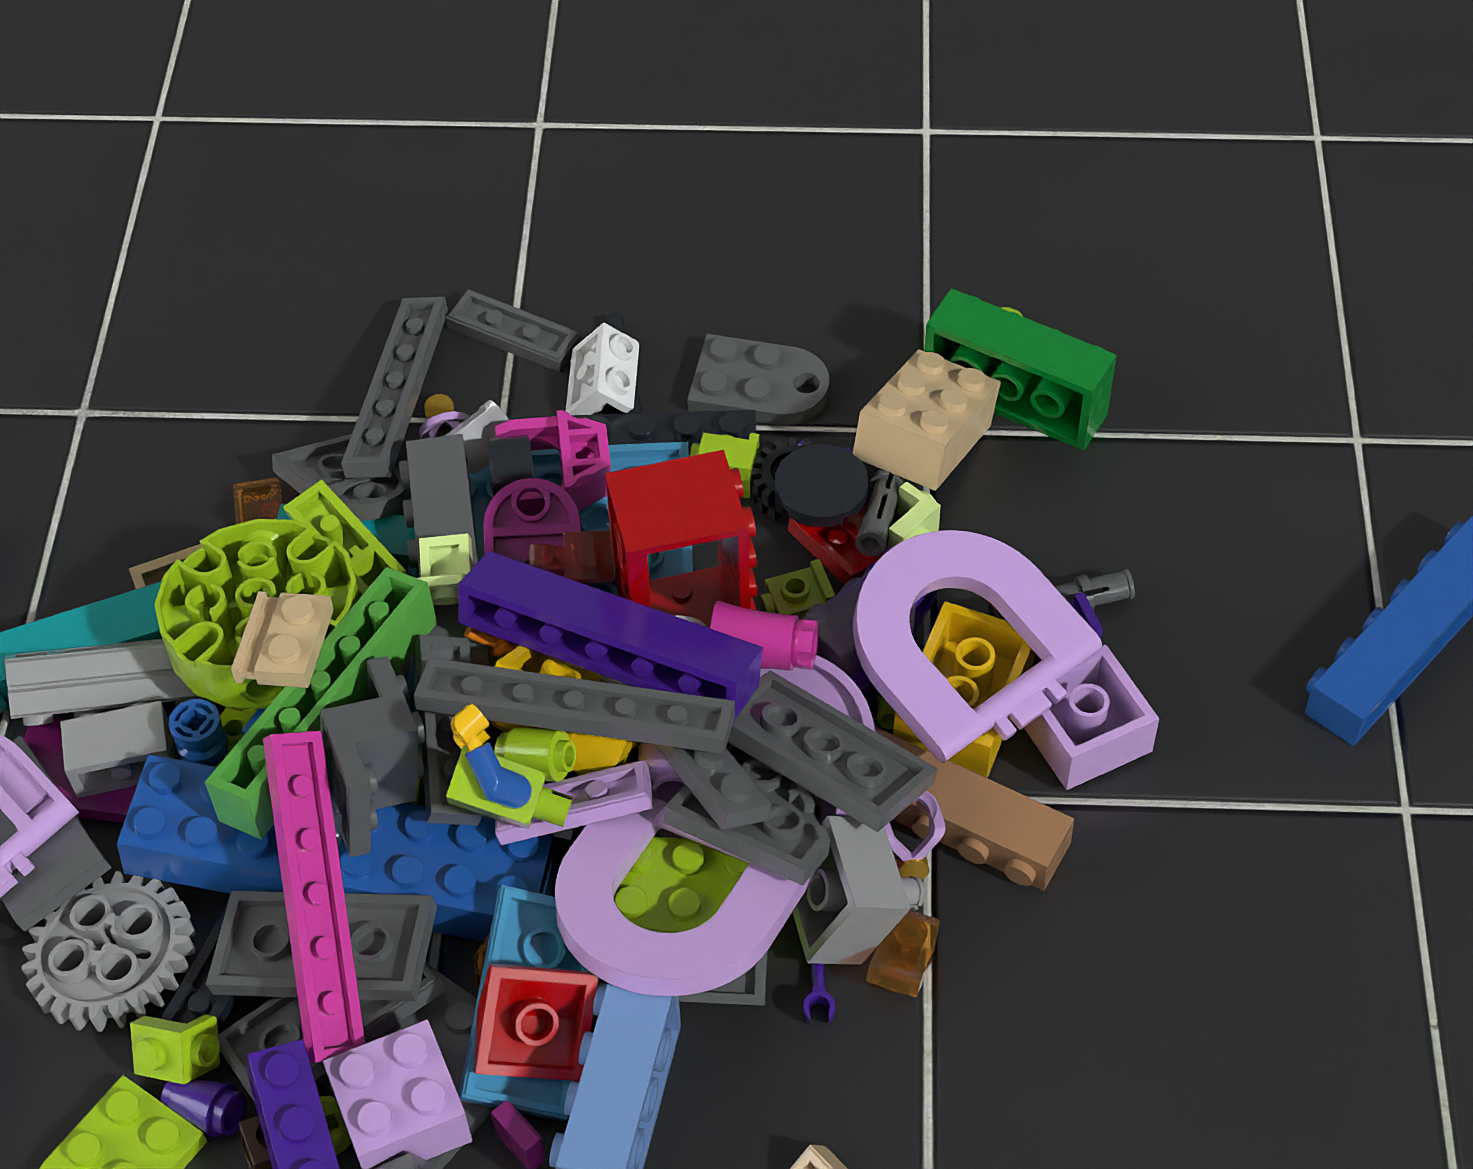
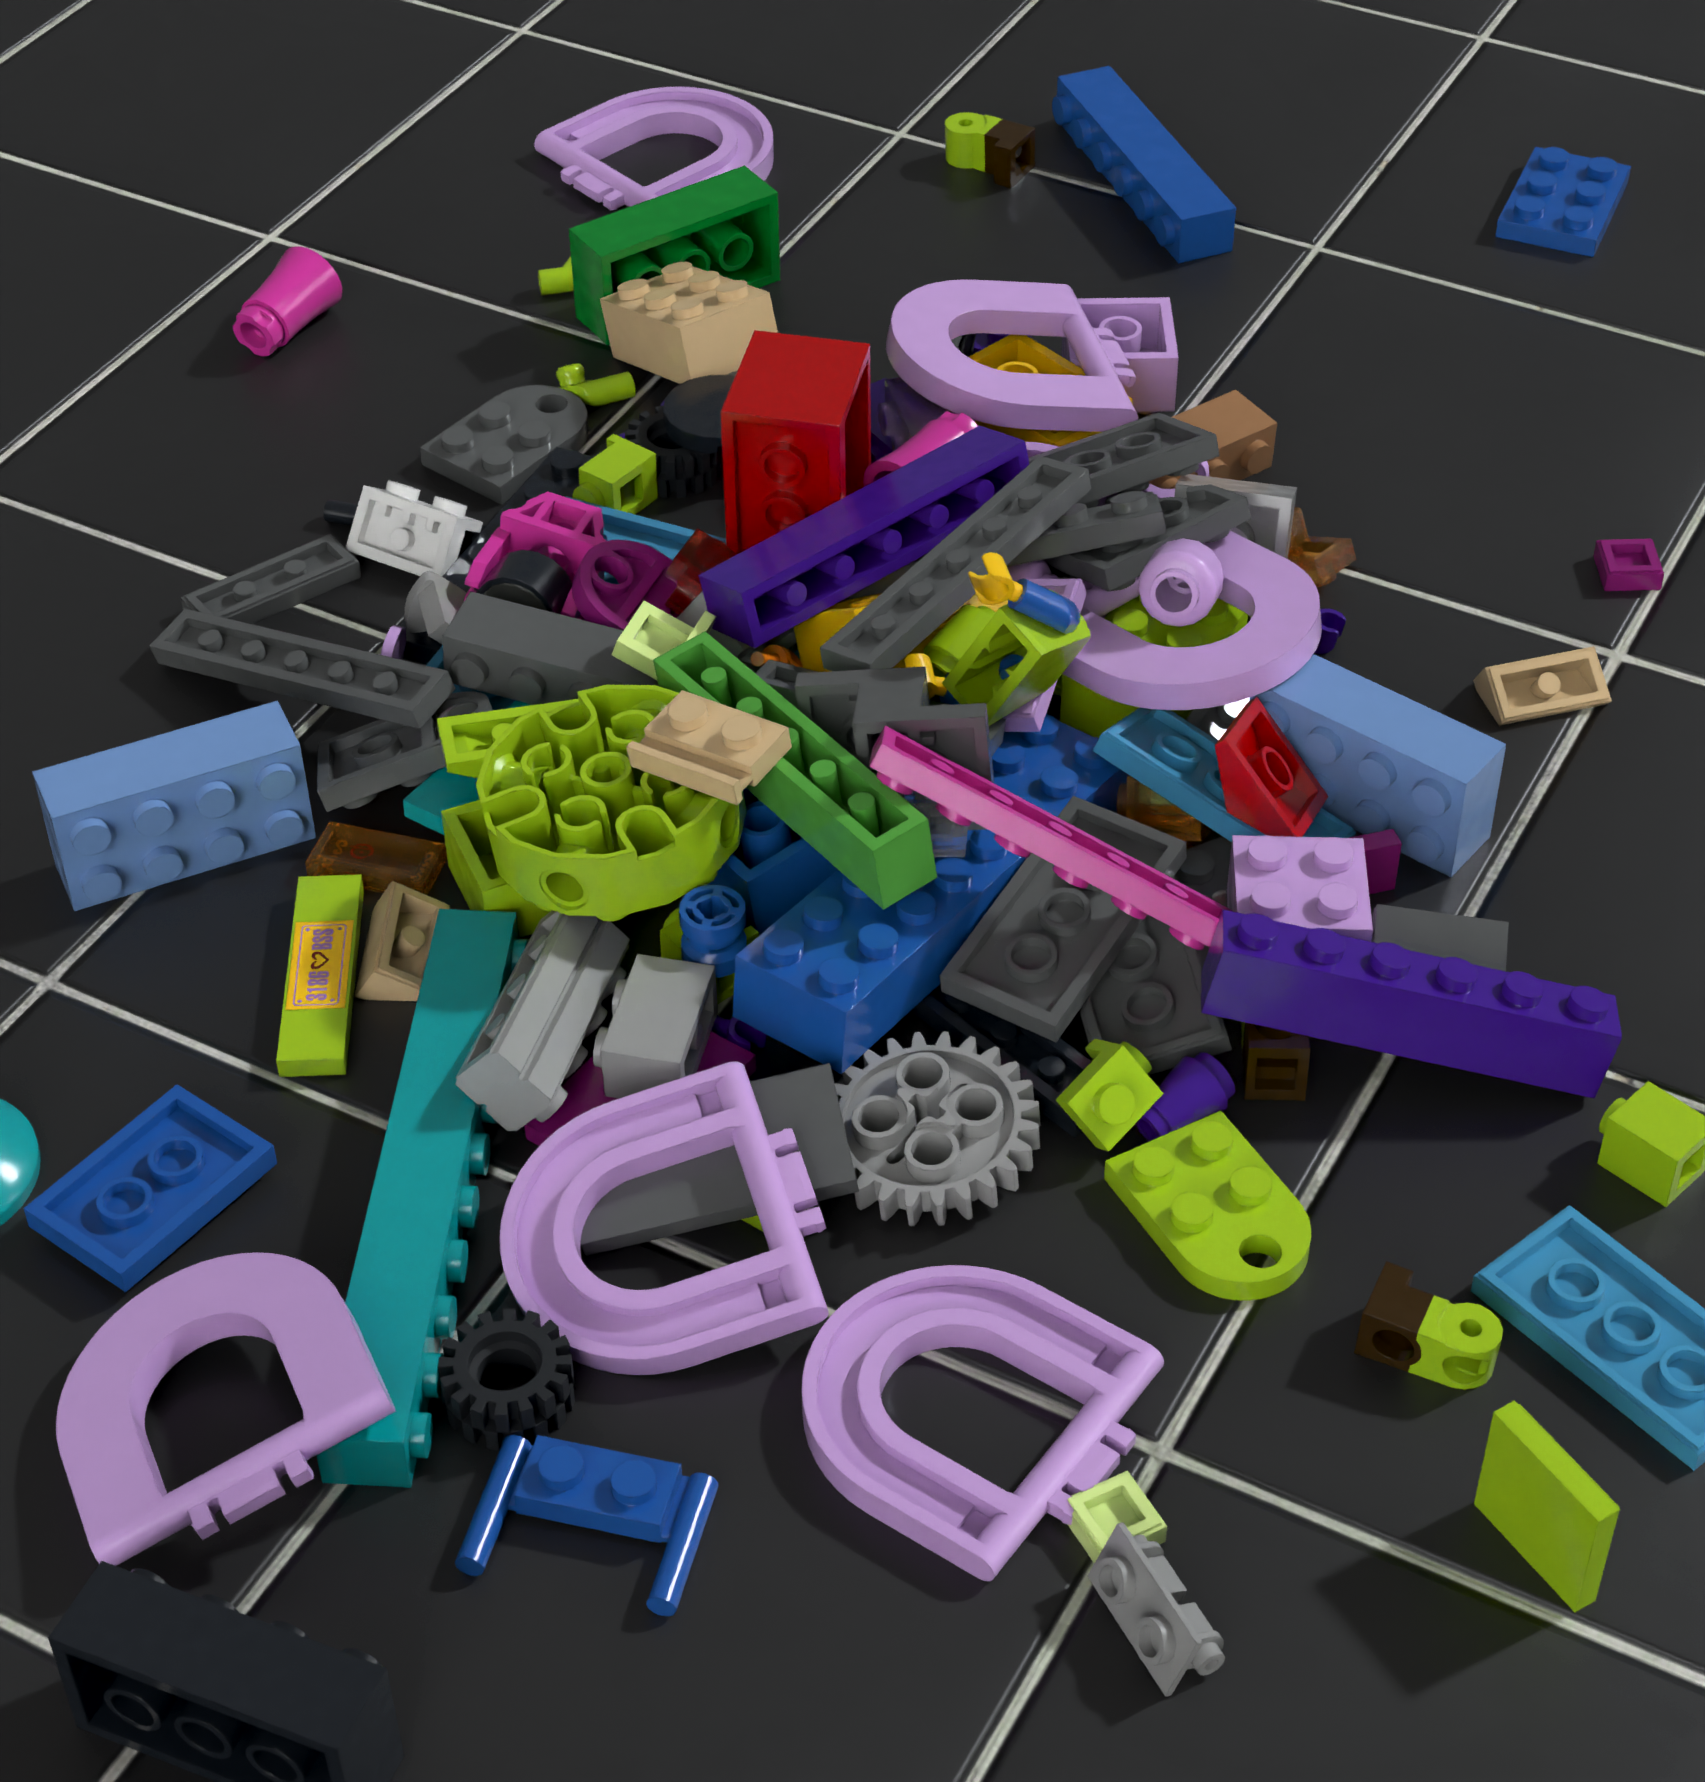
camera: 65 degrees left, 10 degrees down
(135, 543) = (320, 976): none -> lime tile
(222, 387) = (175, 804): none -> medium blue brick
(677, 865) = (1181, 582): none -> lavender head
(821, 178) = (287, 301): none -> dark pink plant
(844, 394) = (597, 391): none -> lime arm
(1191, 351) = (725, 120): none -> lavender piece
(1362, 509) = (990, 146): none -> leg

